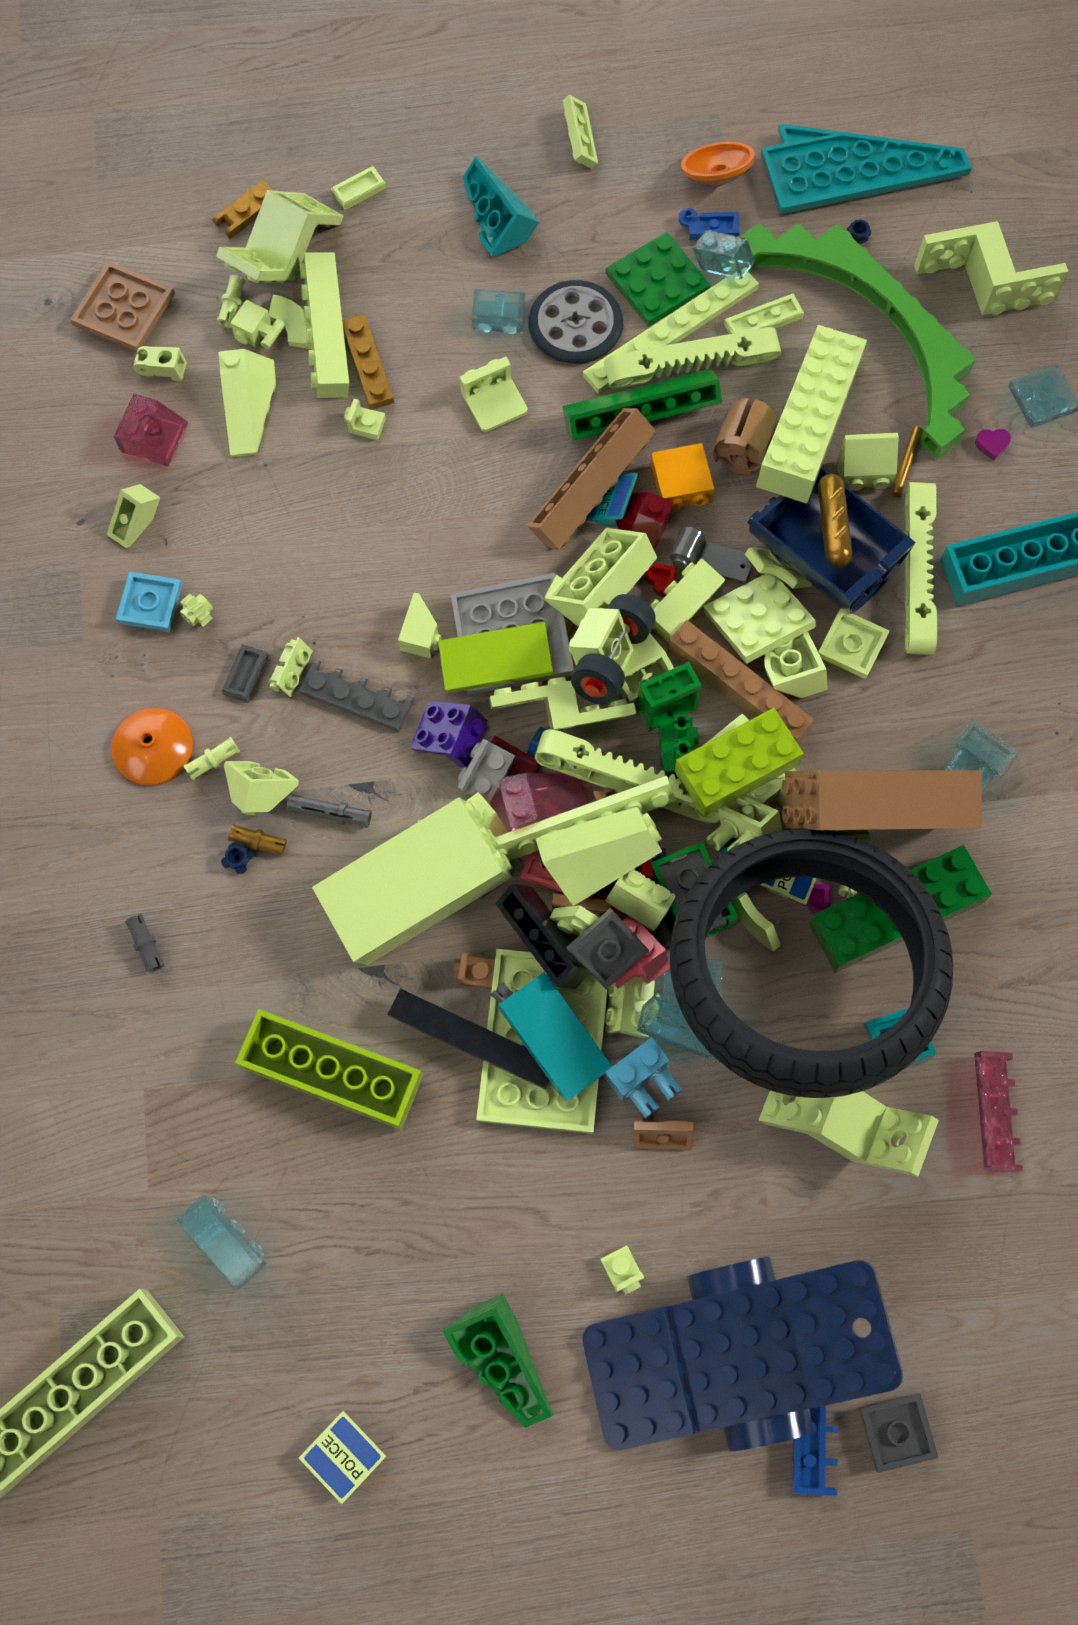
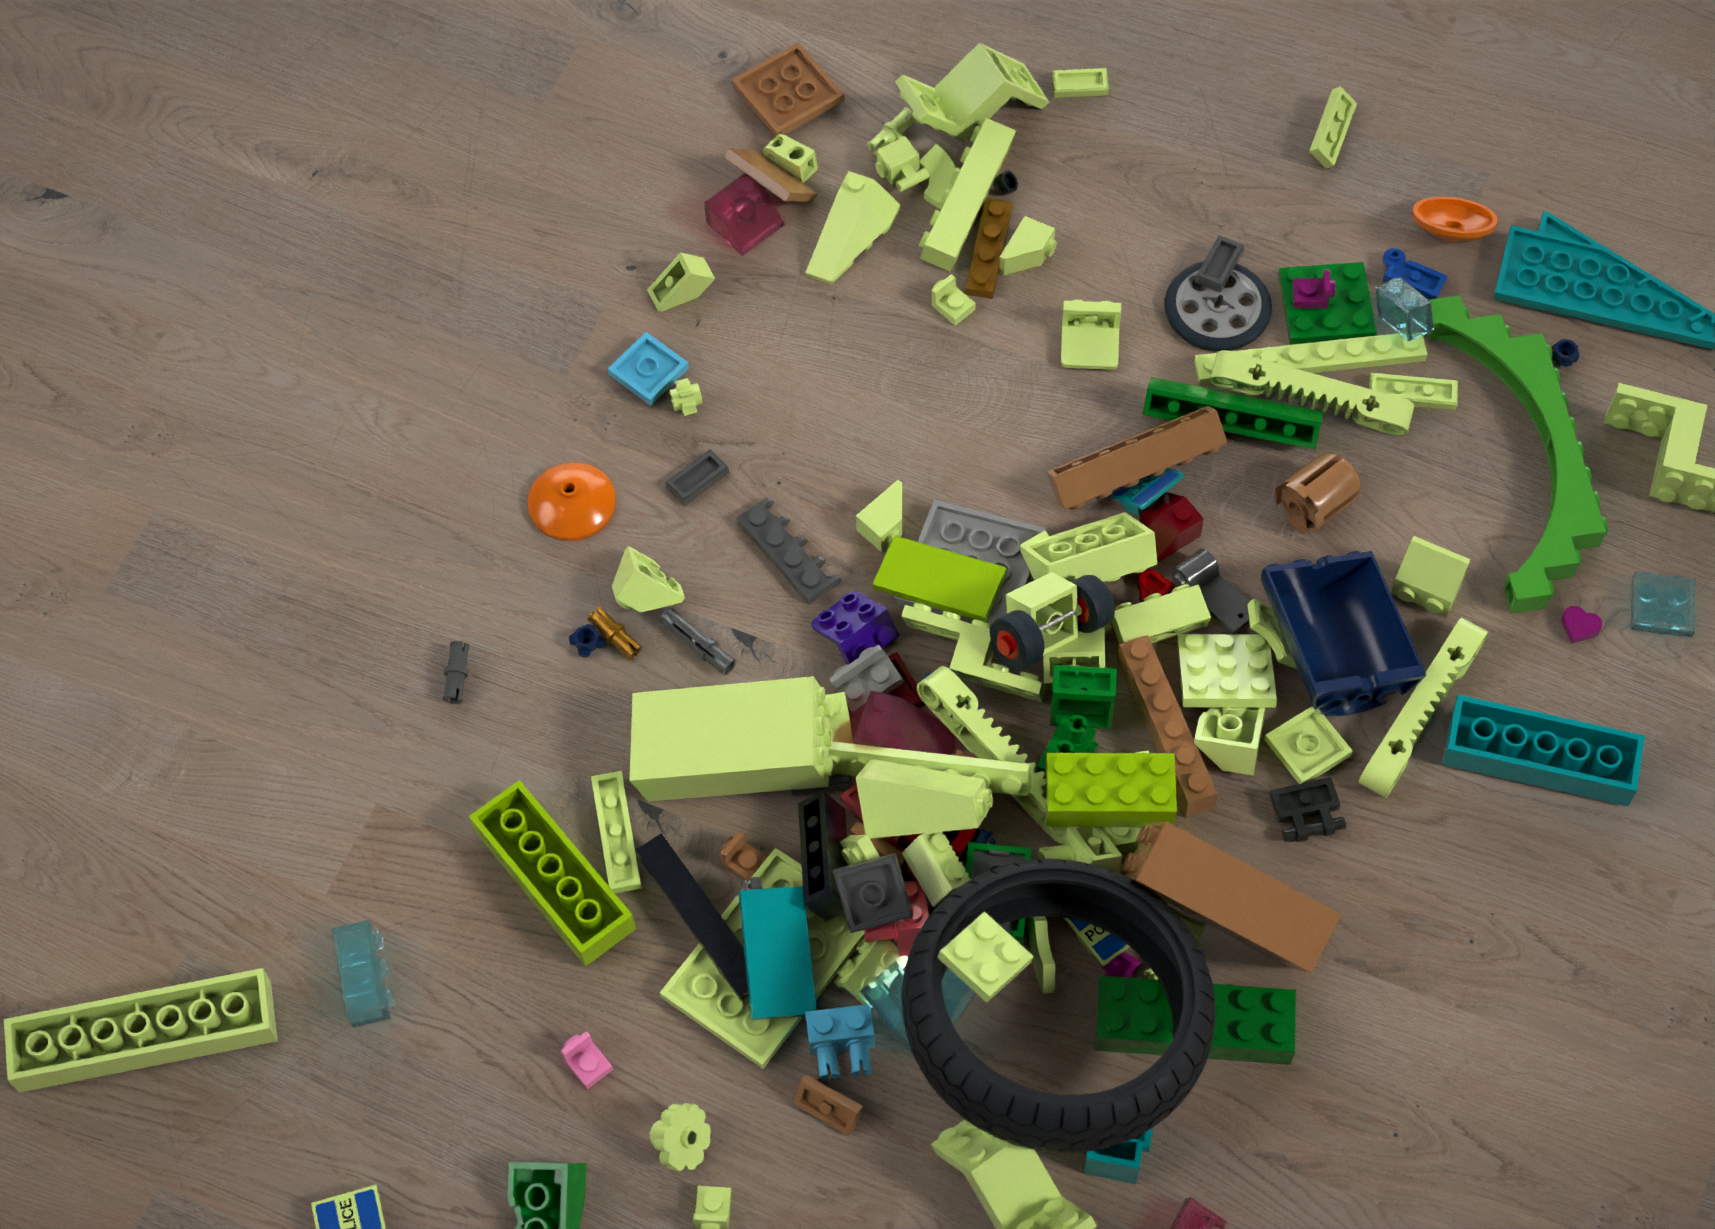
camera: 30 degrees right, 10 degrees down
(153, 386) = (770, 175): none -> medium nougat tile
(211, 758) = (618, 538): yellowish green pin -> none
(243, 210) = (949, 54): pearl gold hinge -> none
(295, 658) = (746, 492): yellowish green hinge -> none
(349, 301) = (1005, 183): none -> black hinge
(359, 1005) = (616, 832): none -> yellowish green plate
(399, 345) = (1027, 247): none -> yellowish green slope
(449, 1207) = (585, 1059): none -> bright pink bracket
(498, 311) = (1145, 259): clear light blue brick -> none
(500, 213) = (1205, 168): teal wedge -> none
(559, 286) = (1219, 263): none -> dark grey tile
(565, 1229) = (681, 1136): none -> yellowish green plant
(646, 274) = (1313, 291): none -> magenta bracket
(682, 476) = (1232, 501): light orange piece -> none
(745, 959) = (985, 957): none -> yellowish green plate
(811, 414) = (1394, 500): yellowish green brick -> none
(835, 521) = (1351, 611): pearl gold piece -> none
(876, 688) = (1307, 800): none -> pearl dark grey plate
(906, 461) = (1475, 600): pearl gold bar -> none
(986, 748) = (1384, 923): clear light blue brick -> none

